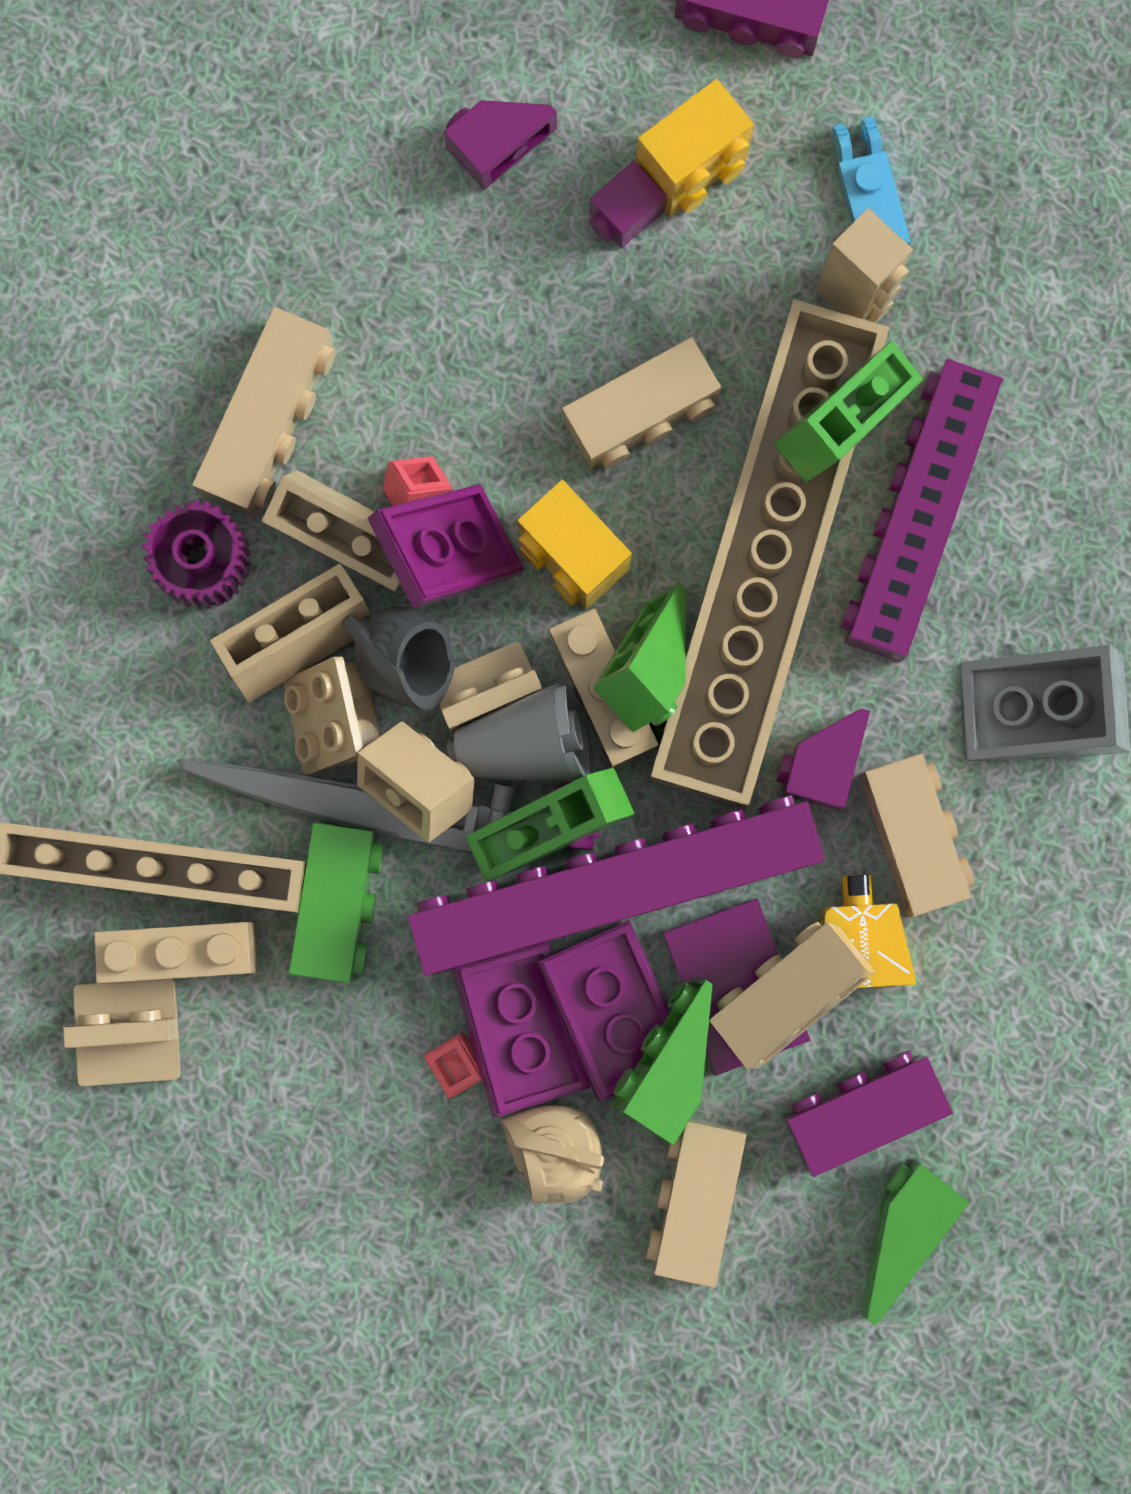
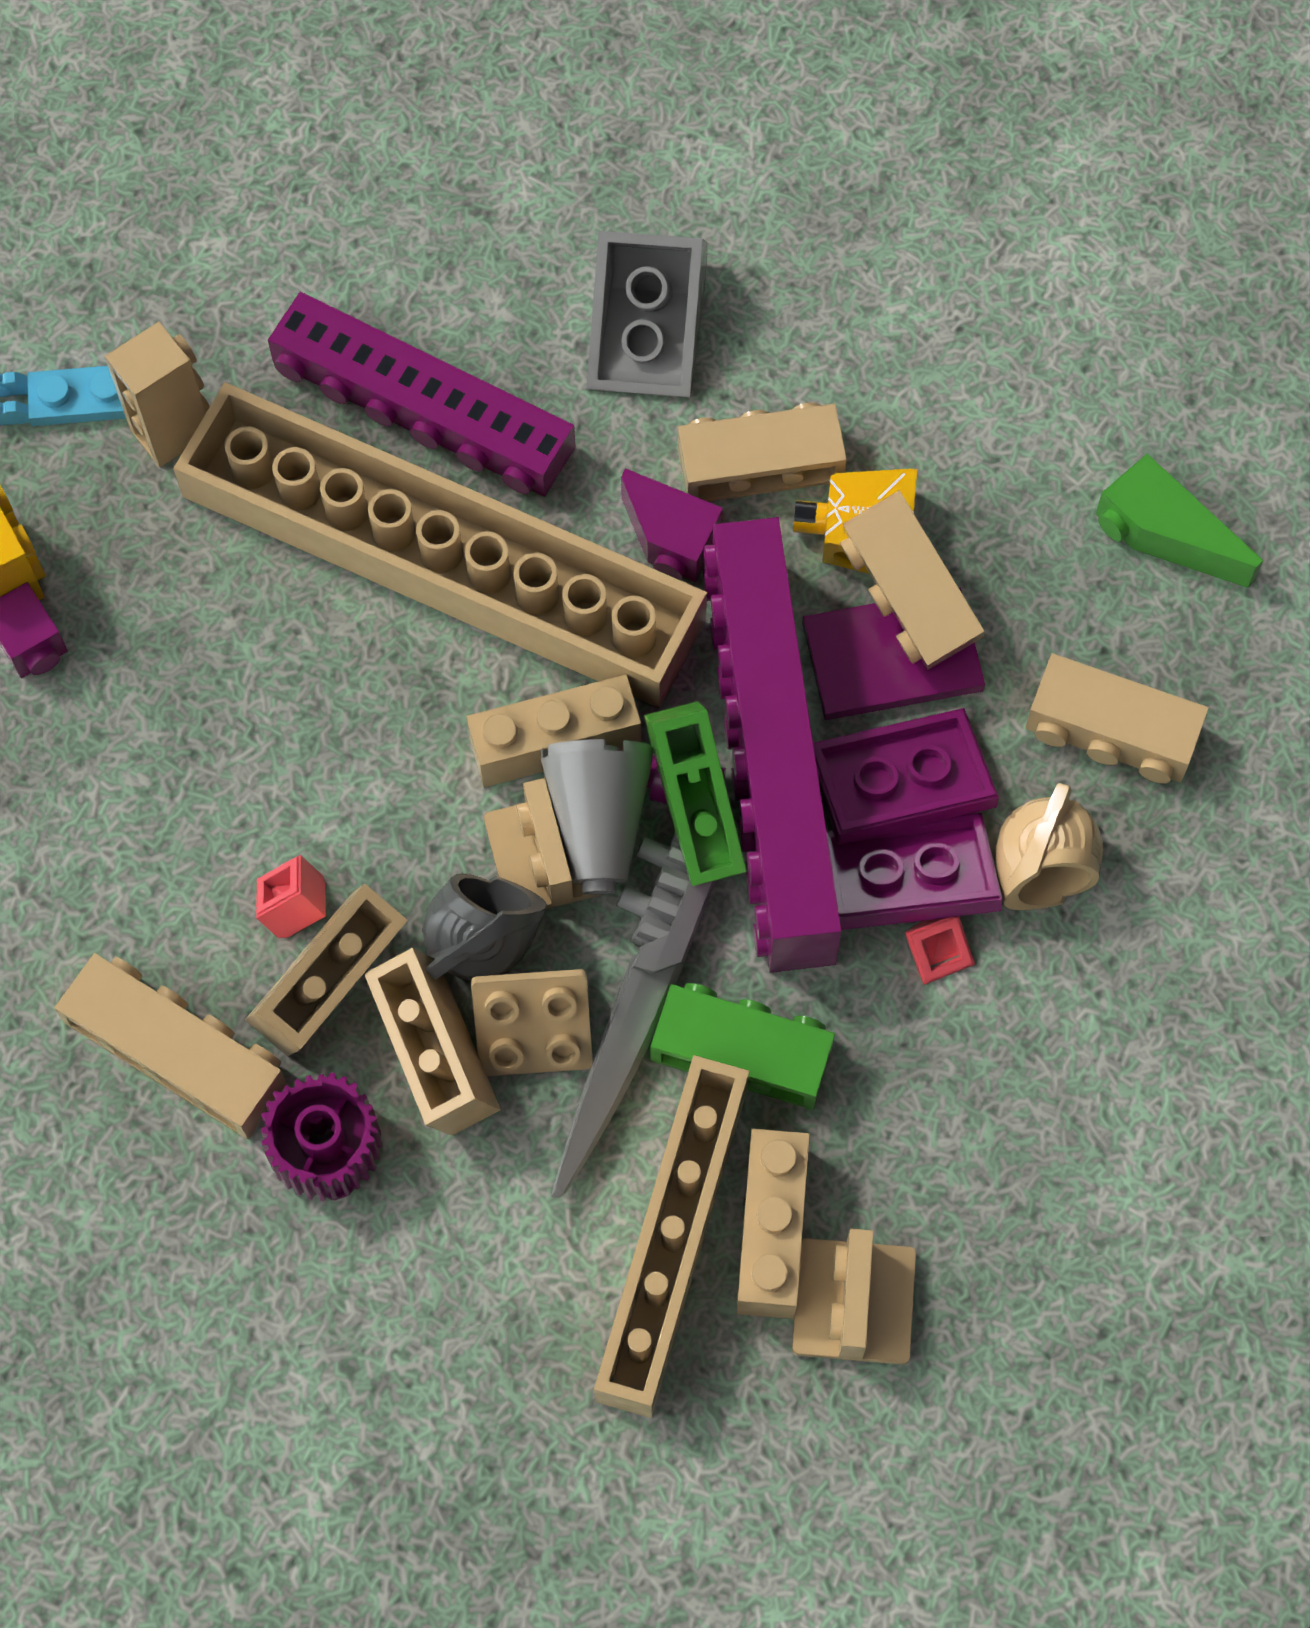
camera: 80 degrees left, 15 degrees down
(415, 781) = (624, 923): tan brick -> none
(445, 545) = (366, 857): magenta tile -> none
(572, 546) = (394, 730): yellow brick -> none
(642, 405) = (250, 648): tan brick -> none
(649, 663) = (533, 666): bright green slope -> none
(670, 1075) = (973, 715): bright green slope -> none
(848, 412) = (313, 426): bright green slope -> none
(866, 1112) = (1043, 543): magenta brick -> none

